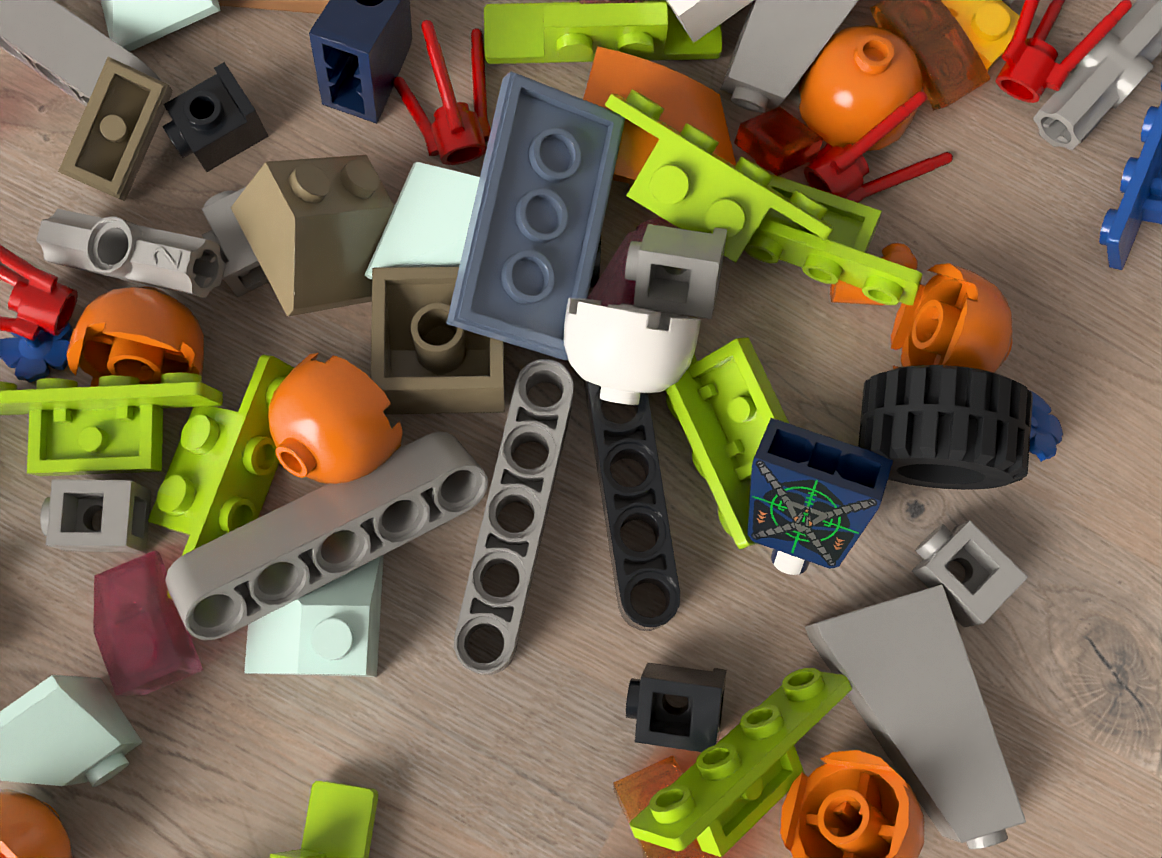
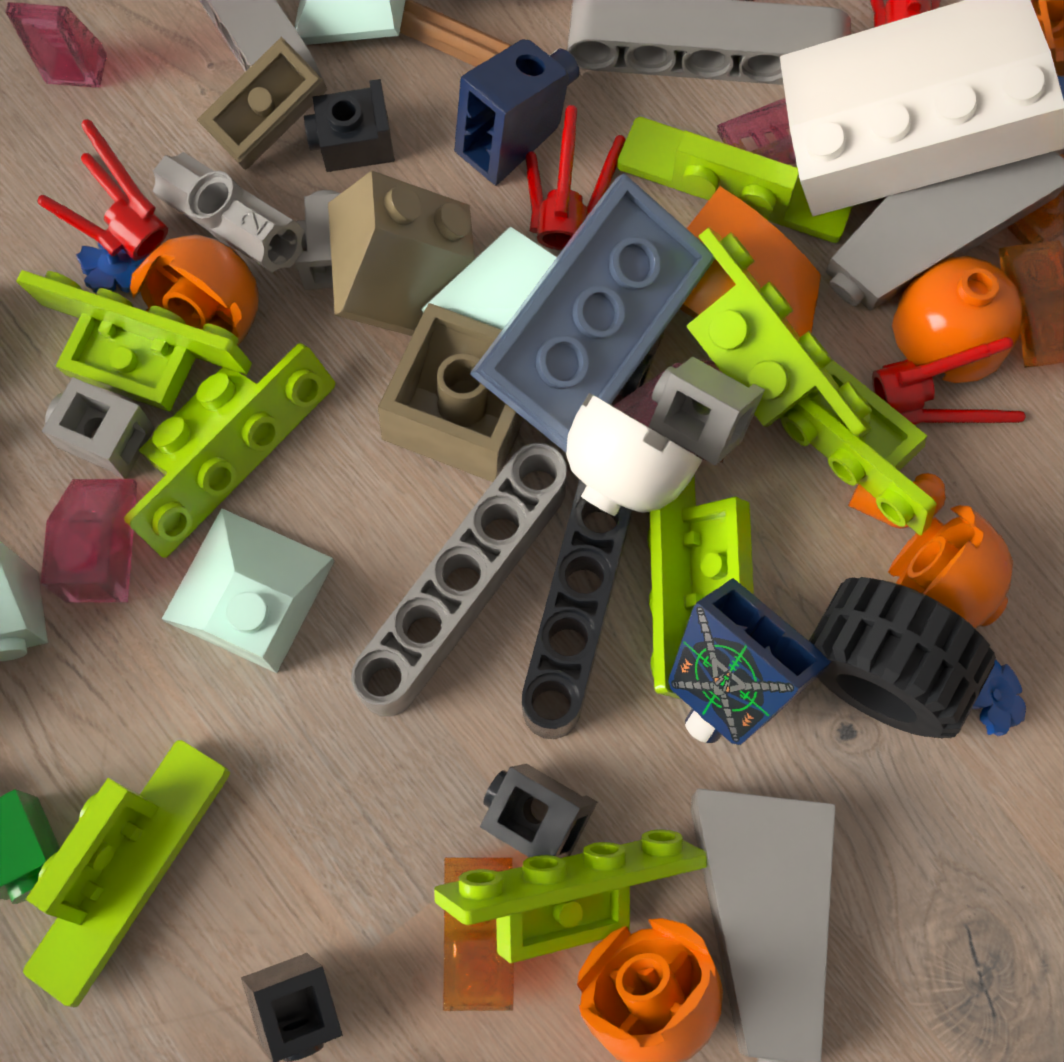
camera: 30 degrees right, 5 degrees down
(323, 536) = (256, 525): light grey beam -> none
(331, 422) = (332, 424): orange cylinder -> none
(778, 141) = (858, 337): clear red plate -> none
(988, 571) = (891, 812): light grey brick -> none

